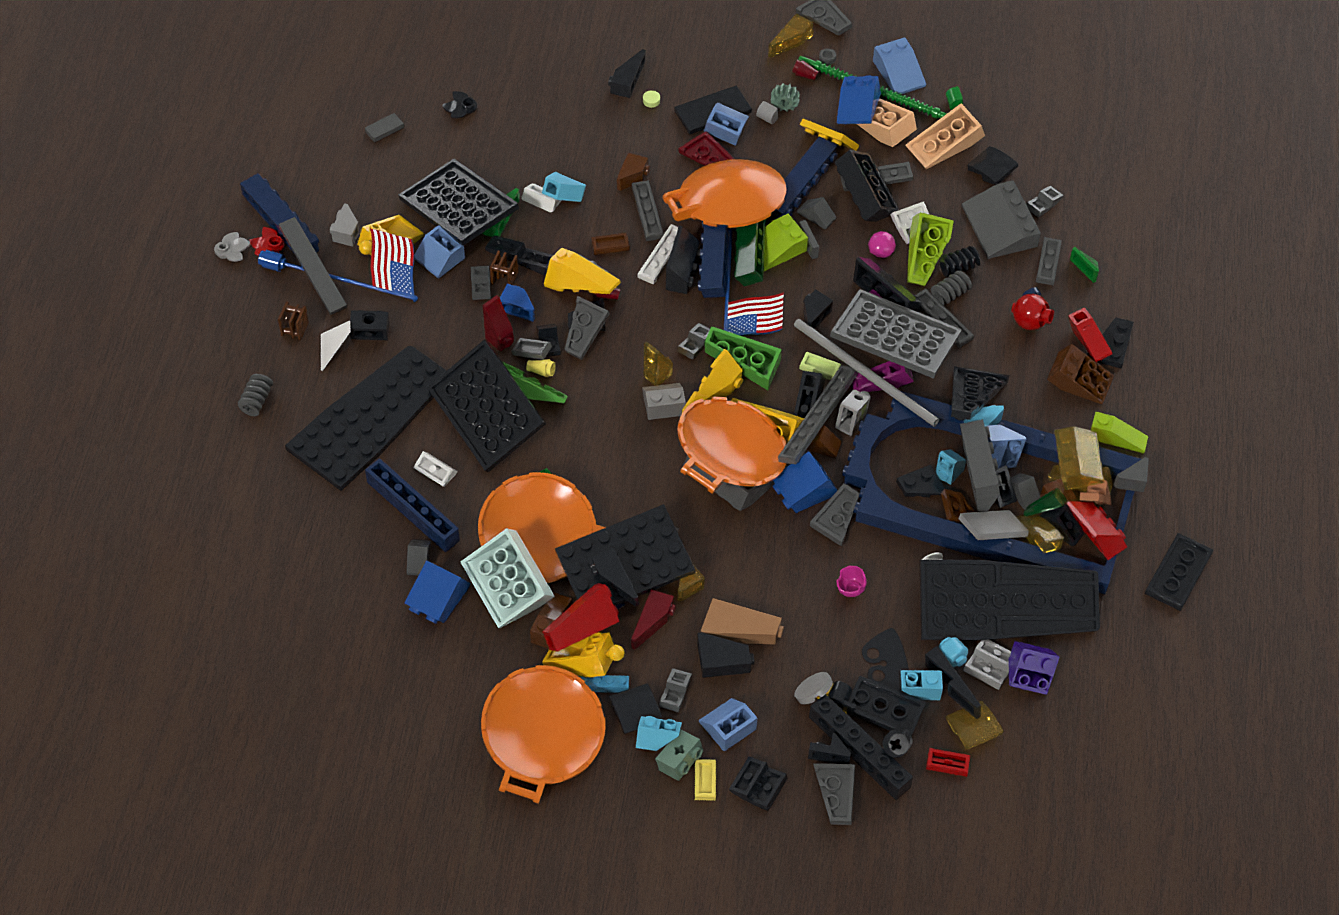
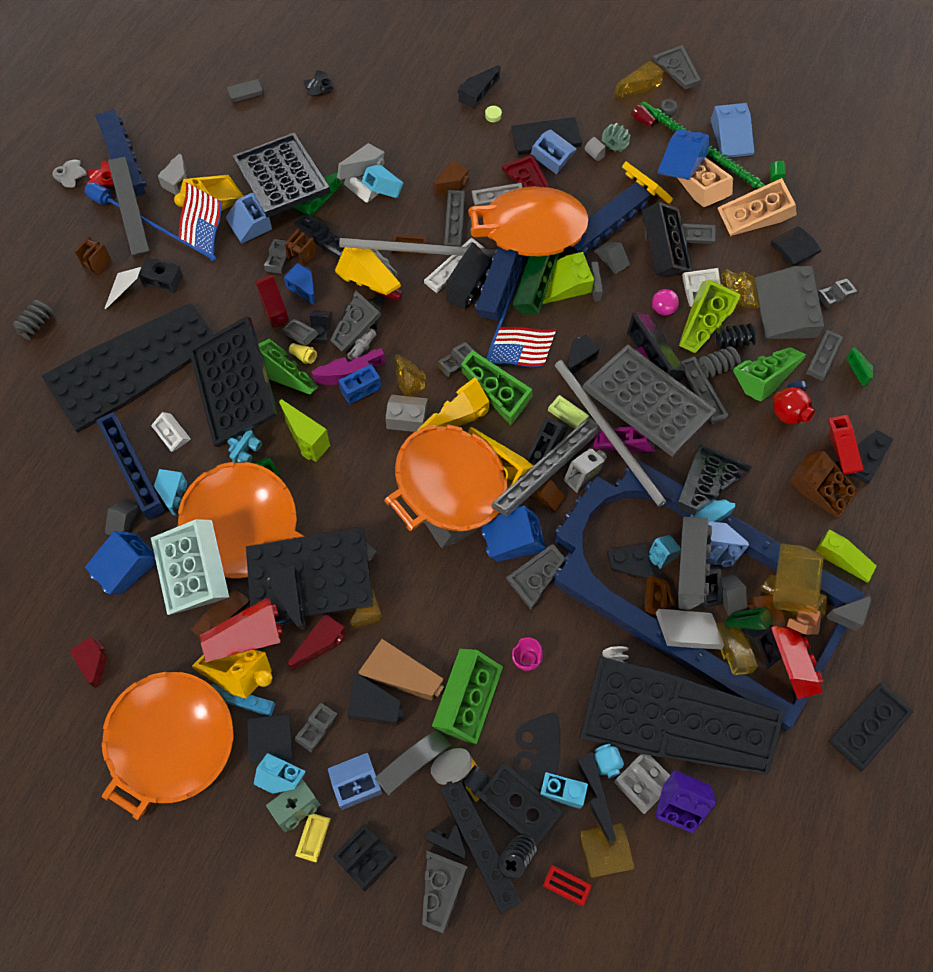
camera: 15 degrees right, 10 degrees up
(438, 682) = (90, 659): none -> dark red slope
(458, 514) = (170, 488): none -> medium azure slope
(512, 466) = (241, 445): none -> medium azure hips
(535, 173) = (358, 162): none -> light grey slope
(572, 436) = (308, 434): none -> lime slope
(589, 375) = (341, 368): none -> magenta slope
(597, 347) = (362, 344): none -> light grey pin
(610, 382) = (360, 384): none -> blue brick
(616, 244) = (409, 247): none -> light grey piece
(675, 180) = (486, 196): none -> light grey plate
(775, 691) = (412, 761): none -> dark grey slope
(807, 629) = (467, 696): none -> bright green slope
(953, 211) = (743, 284): none -> clear yellow slope
(999, 290) = (766, 374): none -> bright green wedge

